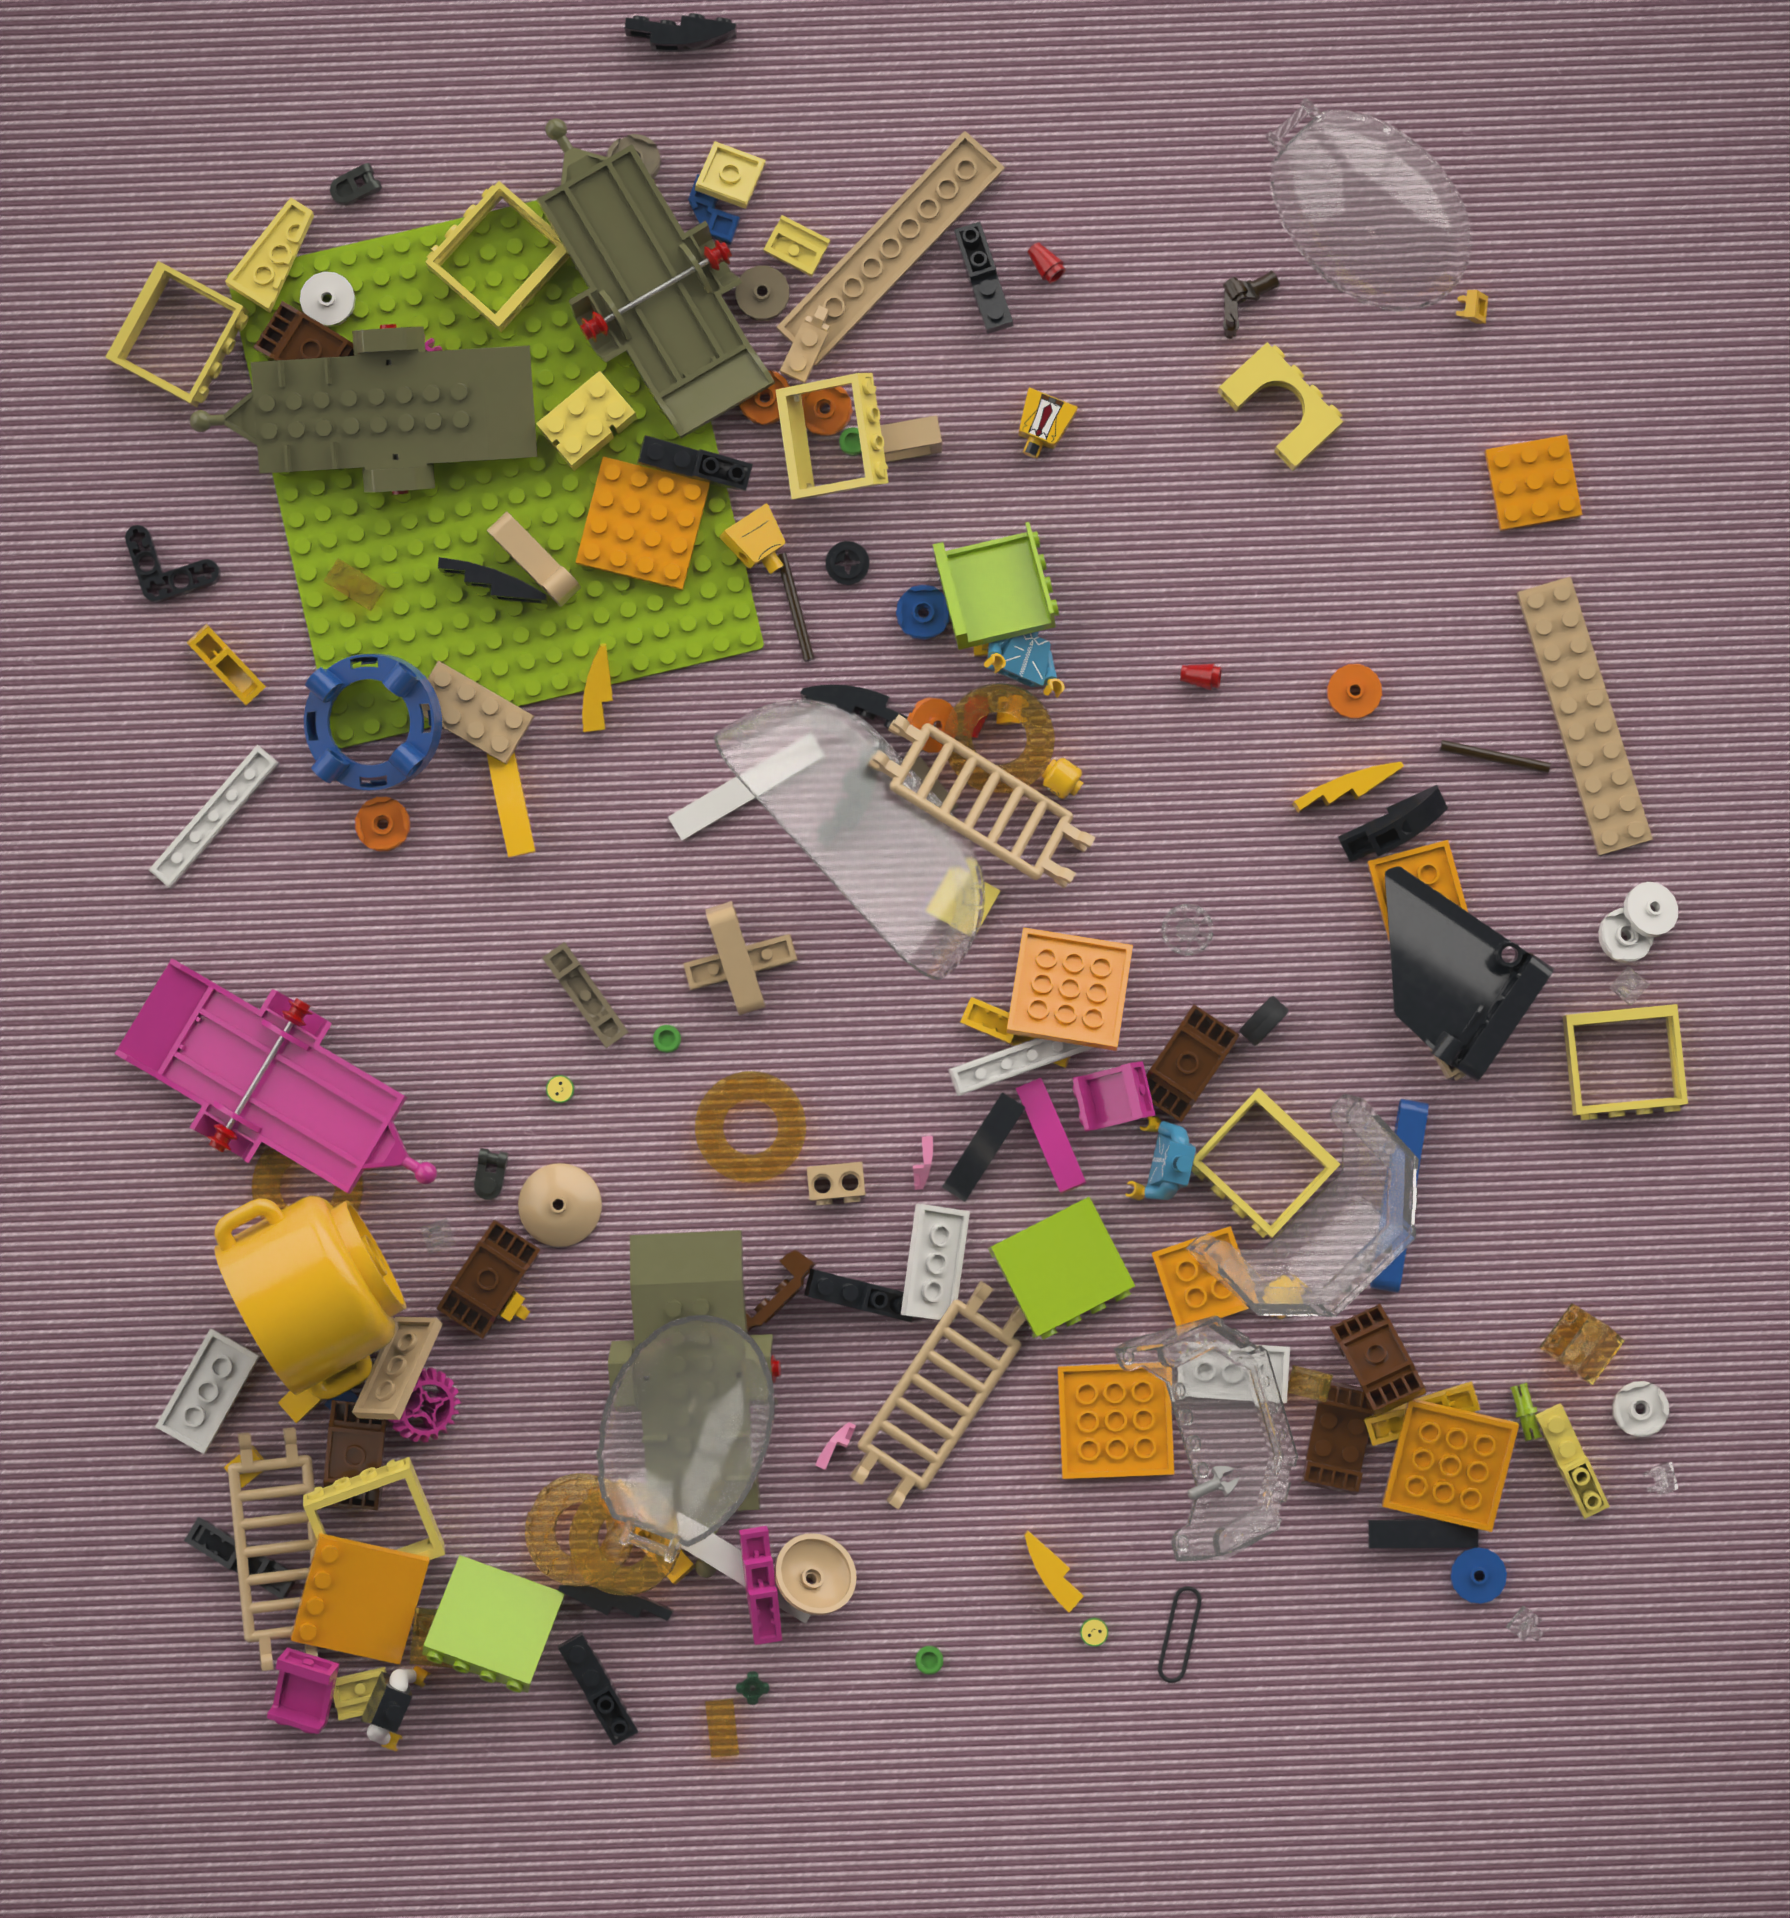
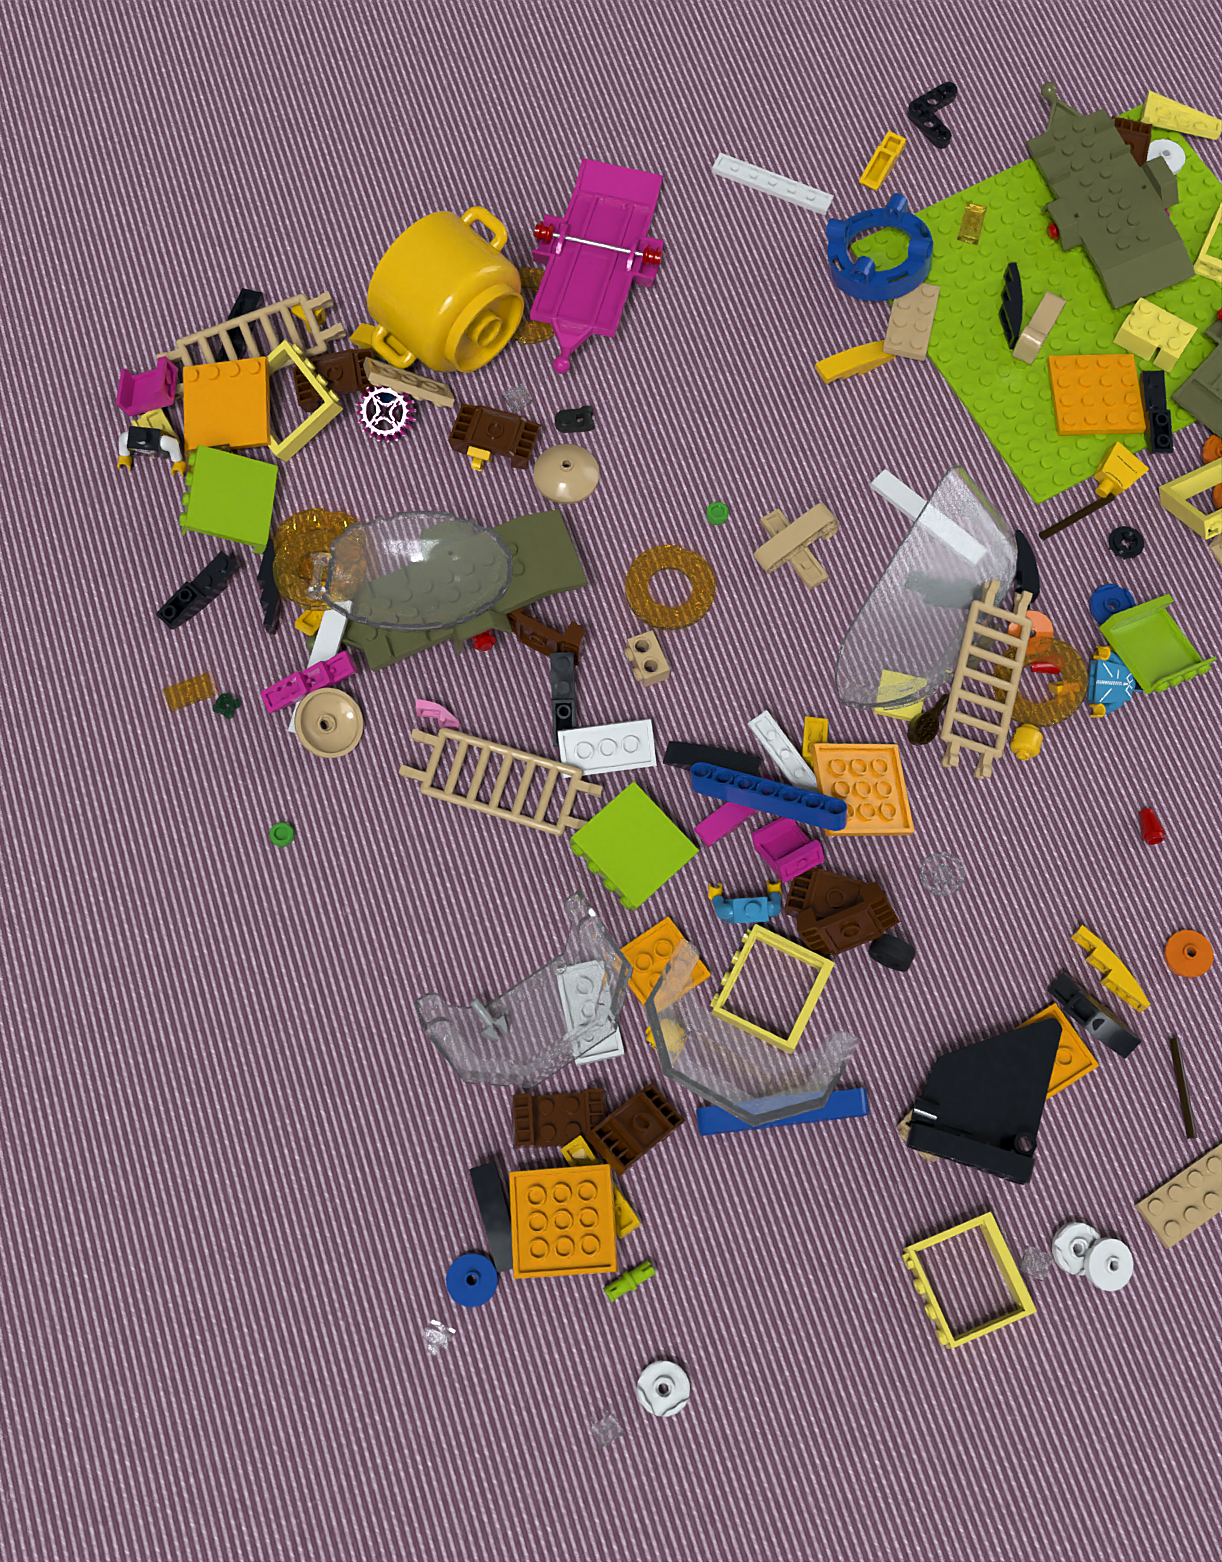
camera: 65 degrees right, 15 degrees down
(139, 315) = (1101, 53): light yellow window -> none
(207, 1391) = (343, 275): white plate -> none
(368, 820) = (807, 277): orange plate -> none
(560, 1089) = (654, 450): light yellow tile -> none
(585, 994) = (732, 447): dark tan slope -> none
(597, 690) = (961, 393): yellow slope -> none
(921, 1172) = (690, 721): bright pink slope -> none
(1008, 885) = (926, 725): none -> dark brown piece
(1052, 1573) = (378, 910): yellow slope -> none
(1065, 1096) = (769, 796): none -> blue beam
(1094, 1632) = (337, 959): light yellow tile -> none
(1114, 1422) = (517, 925): light orange plate -> none
(1189, 1588) = (353, 1042): black piece -> none
(1231, 1059) = (849, 927): none -> reddish brown plate
(1309, 1383) = (598, 1077): clear yellow plate -> none
(1572, 1461) = (597, 1336): light yellow slope -> none
(1582, 1344) = (705, 1315): clear yellow slope -> none

